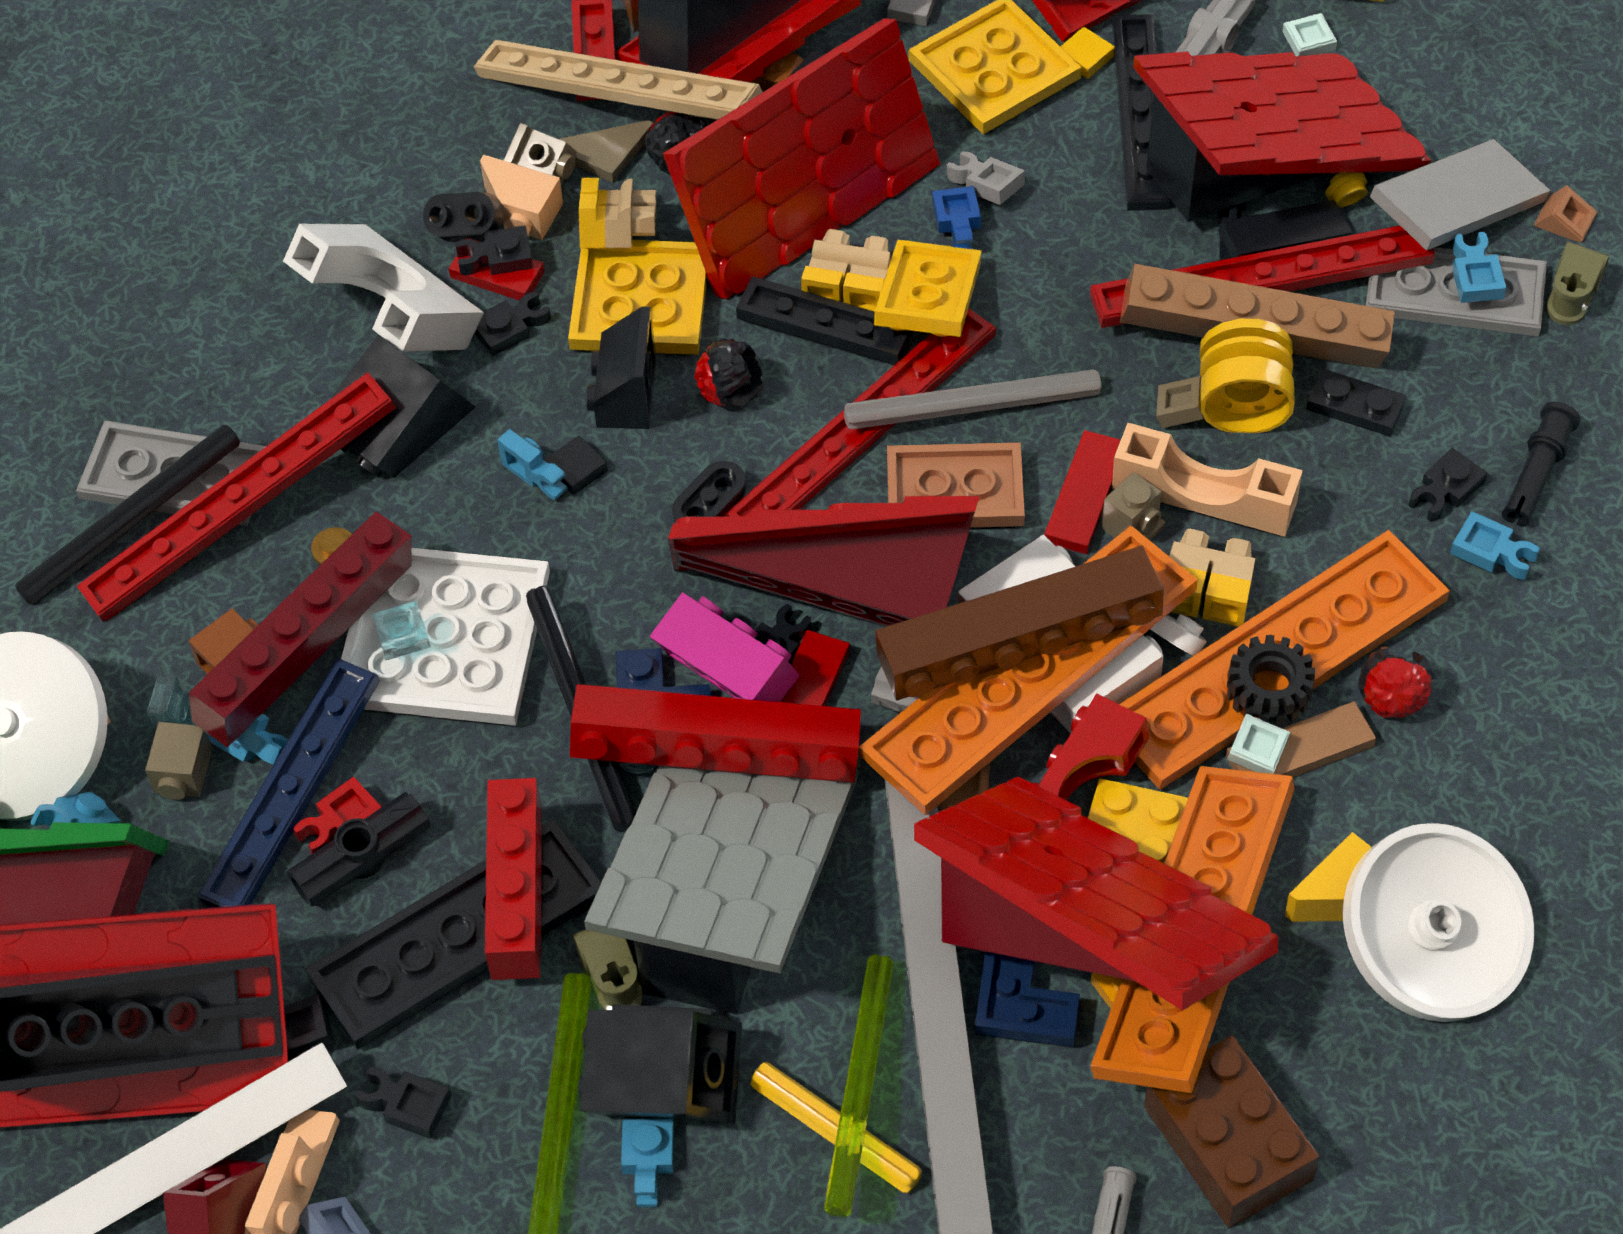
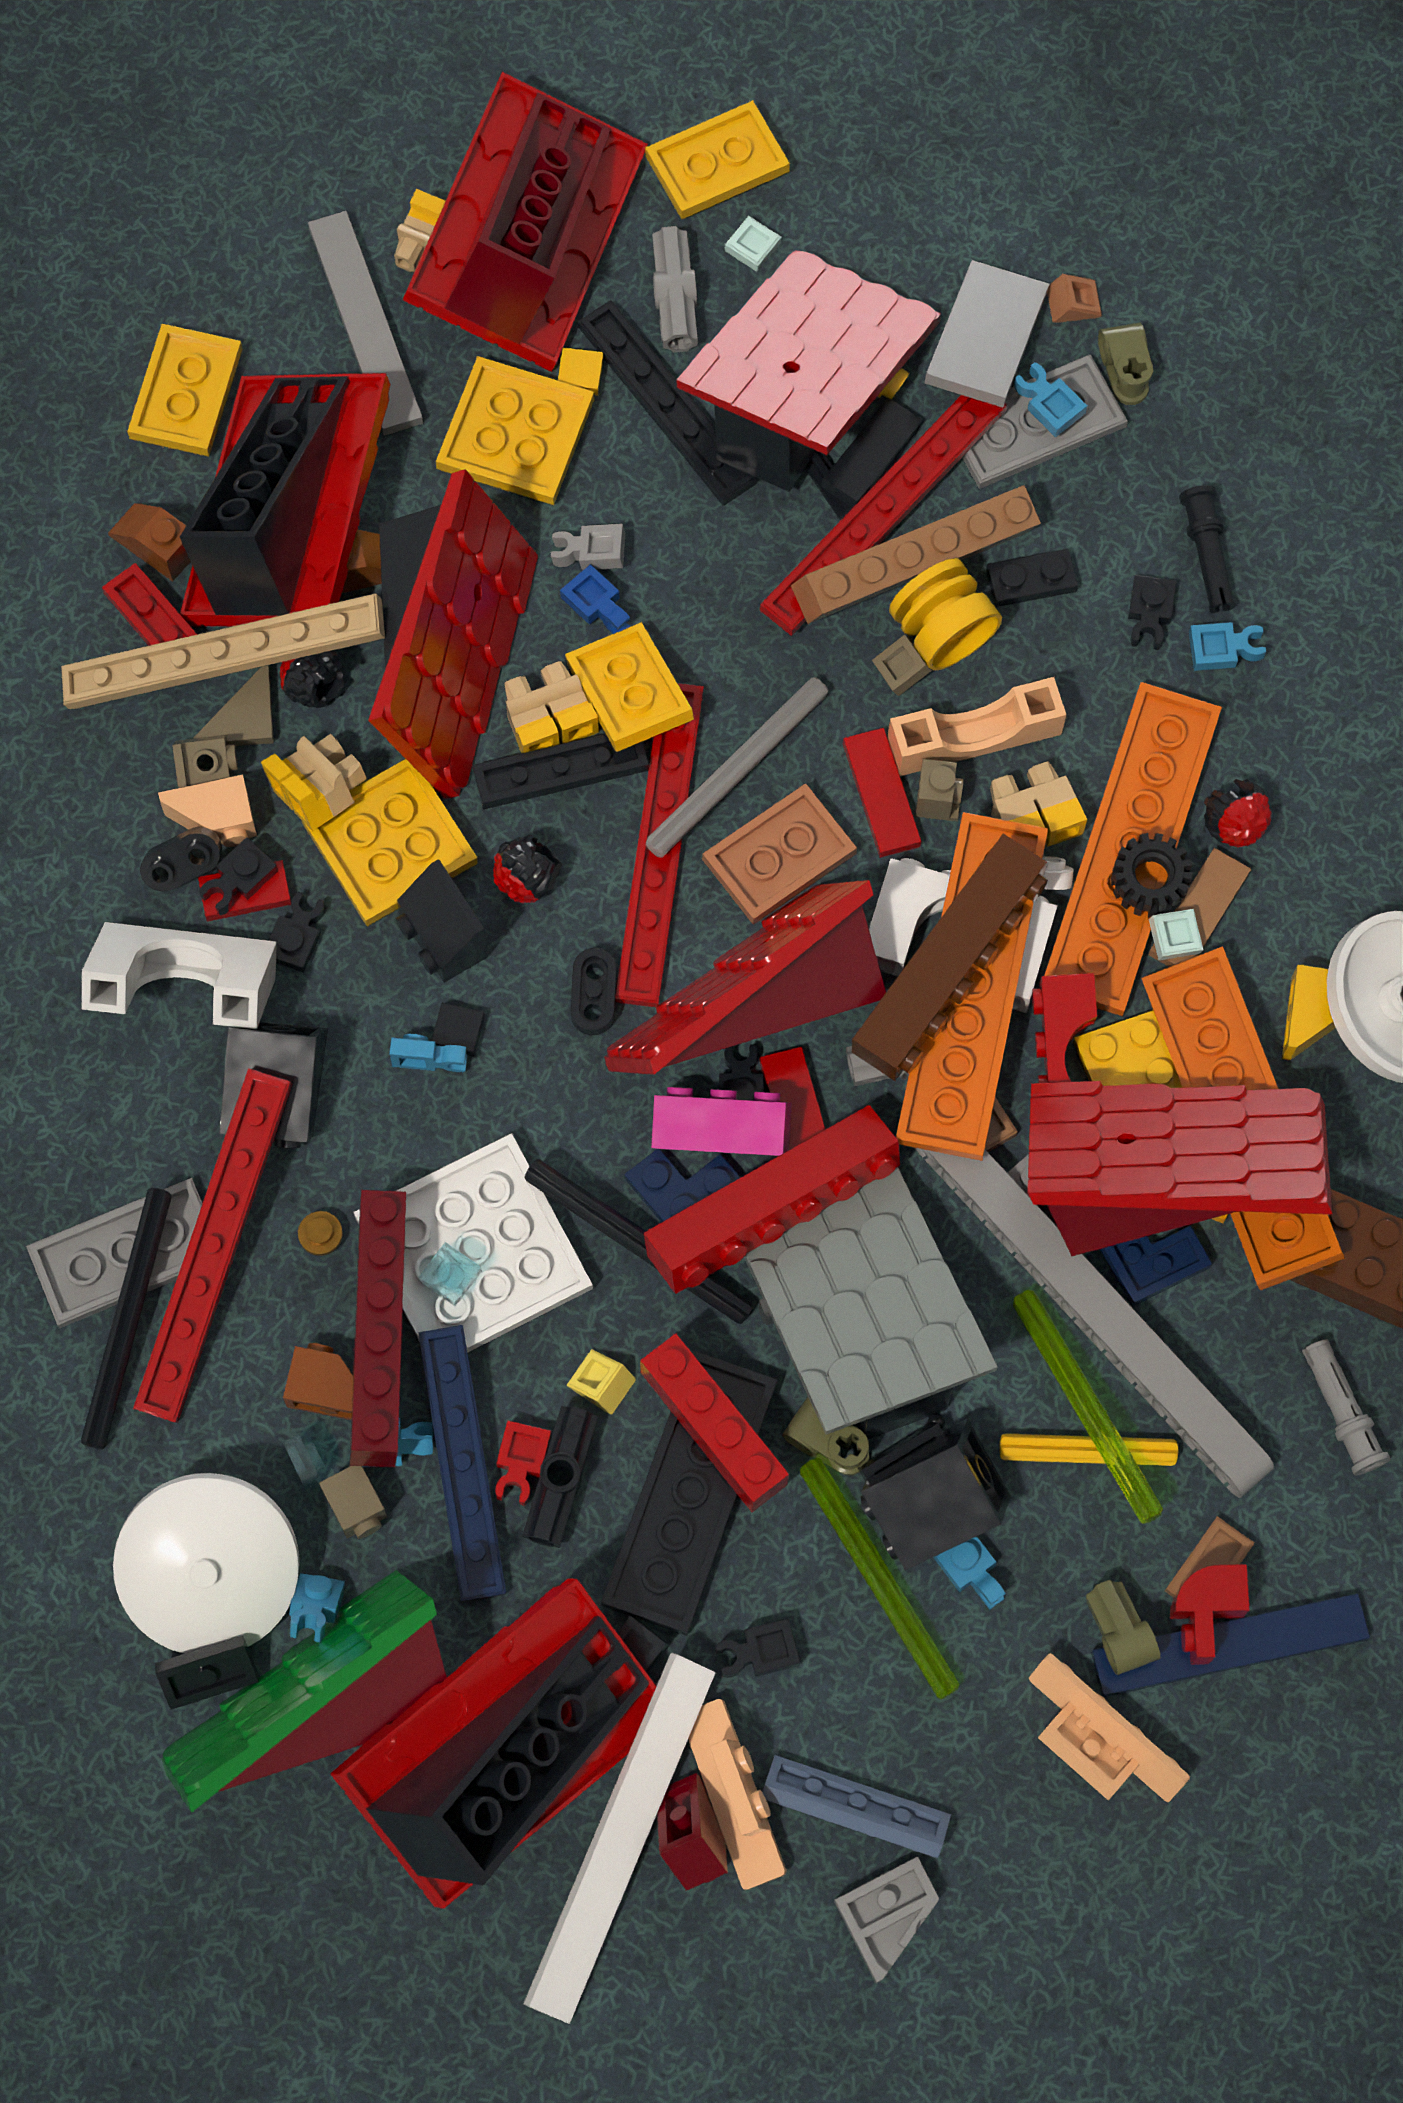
camera: 40 degrees left, 15 degrees up
(461, 803) = (602, 1381): none -> light yellow slope

